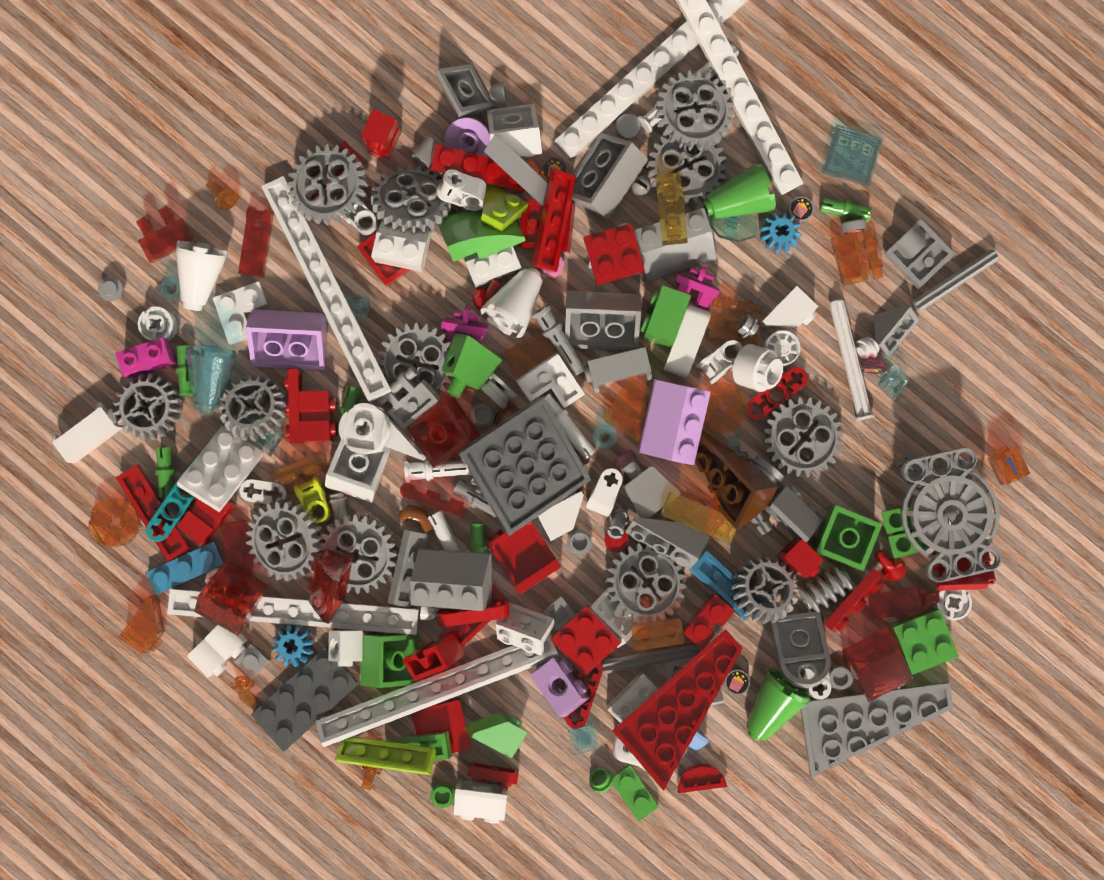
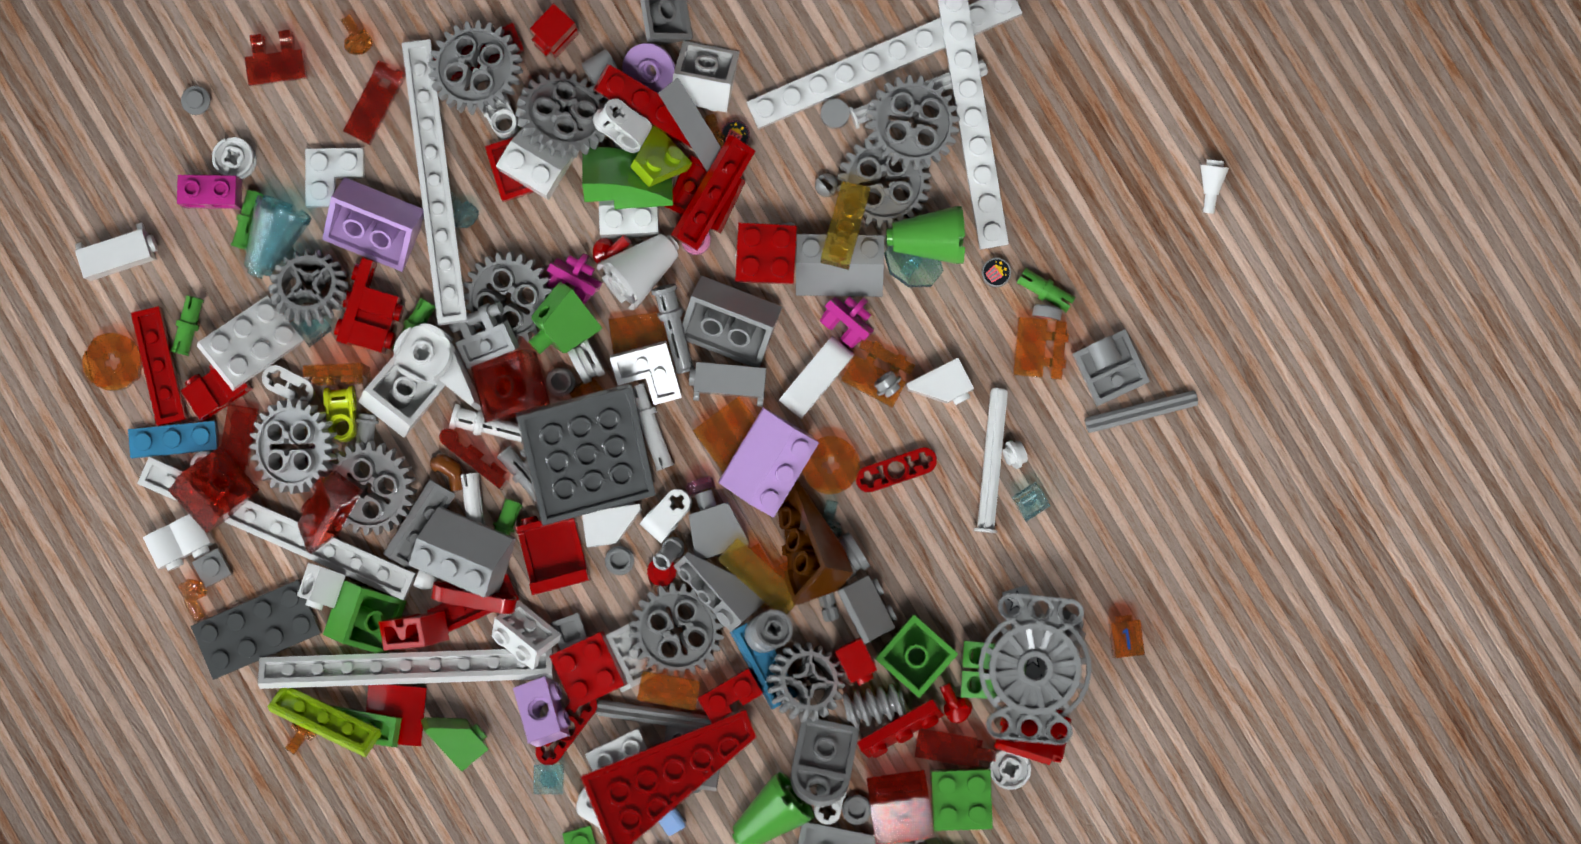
camera: 20 degrees right, 0 degrees up
(136, 390) = (205, 244): light grey gear -> none
(145, 627) = (107, 489): clear orange slope -> none
(165, 286) = (257, 117): clear light blue plate -> none
(173, 496) = (189, 356): teal beam -> none
(198, 272) = (299, 115): white cone -> none
(285, 649) = (273, 563): dark azure gear -> none
(442, 795) = (372, 787): bright green plate -> none
(480, 801) = (411, 807): white slope -> none
(483, 772) = (445, 789): red plate -> none
(498, 92) = (703, 27): light grey hinge -> none
(601, 780) = (552, 830): bright green plate -> none
(606, 174) = (790, 160): light grey slope -> none
(612, 436) = (685, 443): clear light blue plate -> none
(666, 318) = (800, 342): bright green brick -> none
(718, 362) = (844, 413): white piece -> none
(722, 558) = (768, 631): none -> light grey wheel
(737, 682) = (740, 775): tile -> none
(757, 368) = (881, 433): white piece -> none
(773, 225) = (965, 281): dark azure gear -> none
(785, 345) = (919, 421): white wheel -> none
(786, 422) = (894, 505): light grey gear -> none
(852, 155) = (1075, 231): clear light blue tile -> none
(873, 366) = (1014, 476): clear pink tile -> none
(893, 327) = (1052, 441): light grey slope -> none
(947, 76) = (1212, 178): none -> white cone

